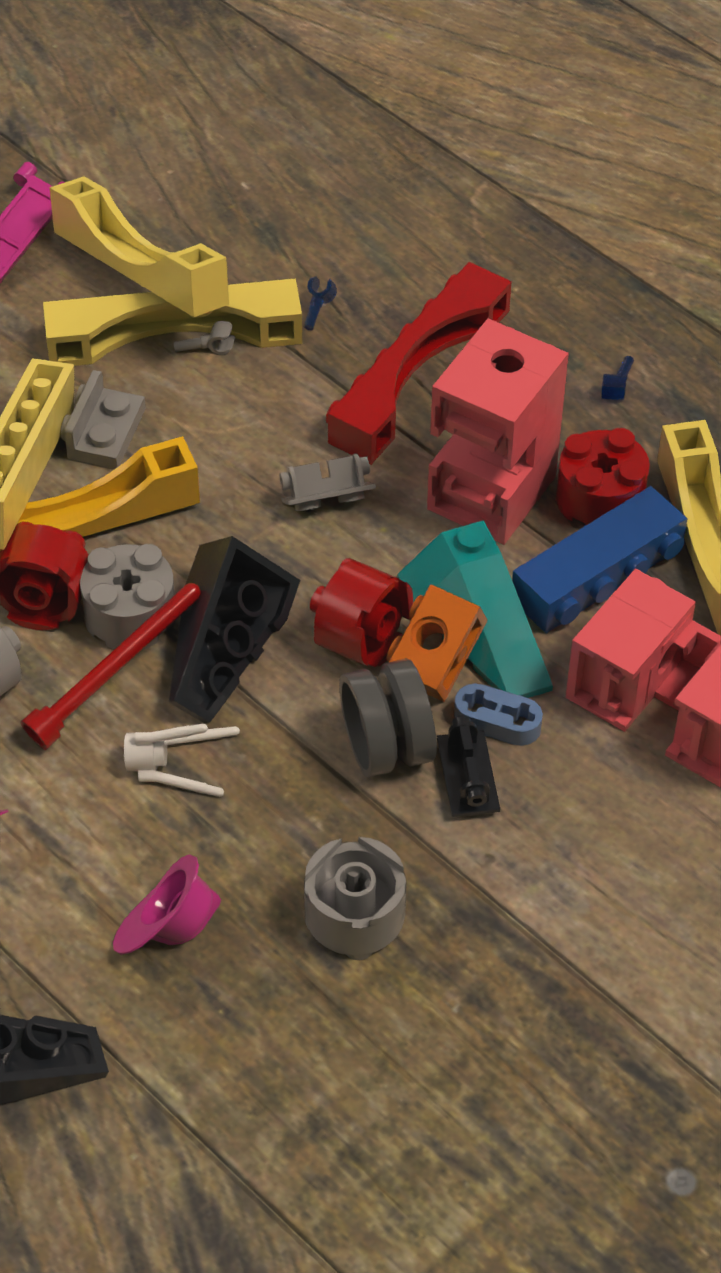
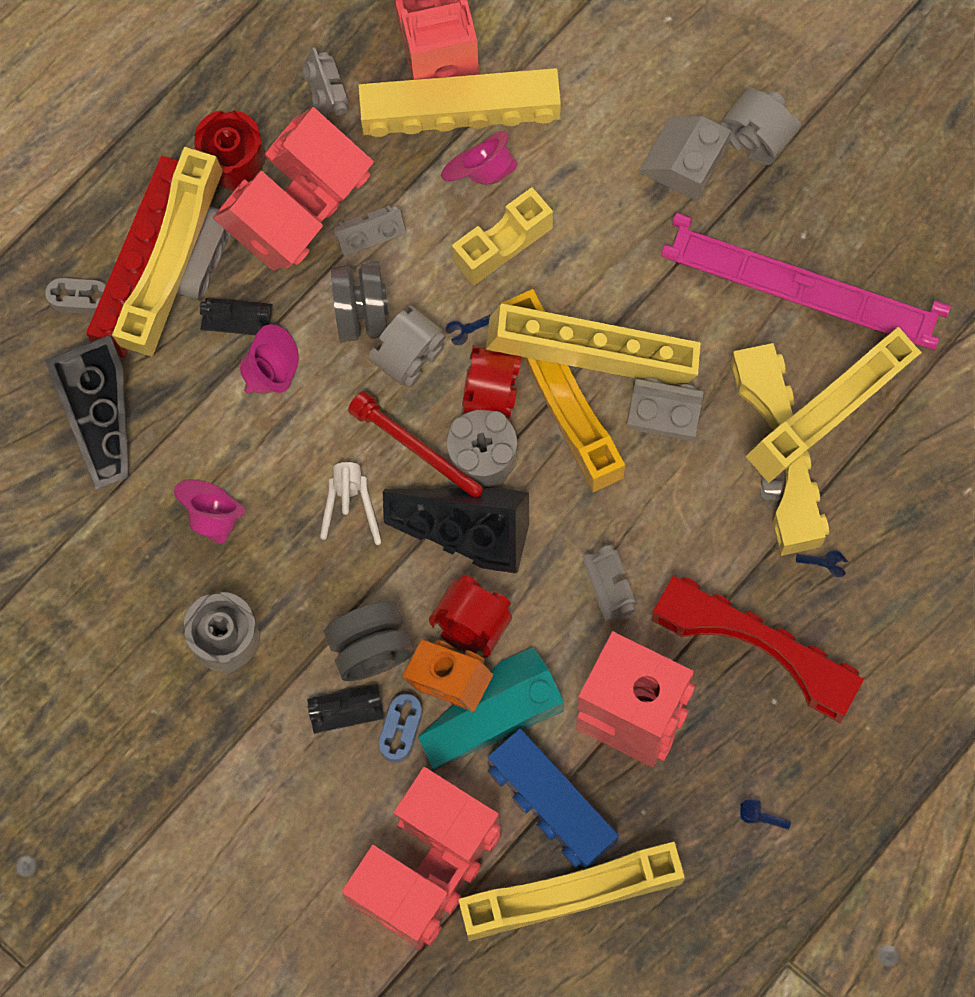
camera: 90 degrees right, 20 degrees up
(599, 473) = (643, 781): red brick -> none

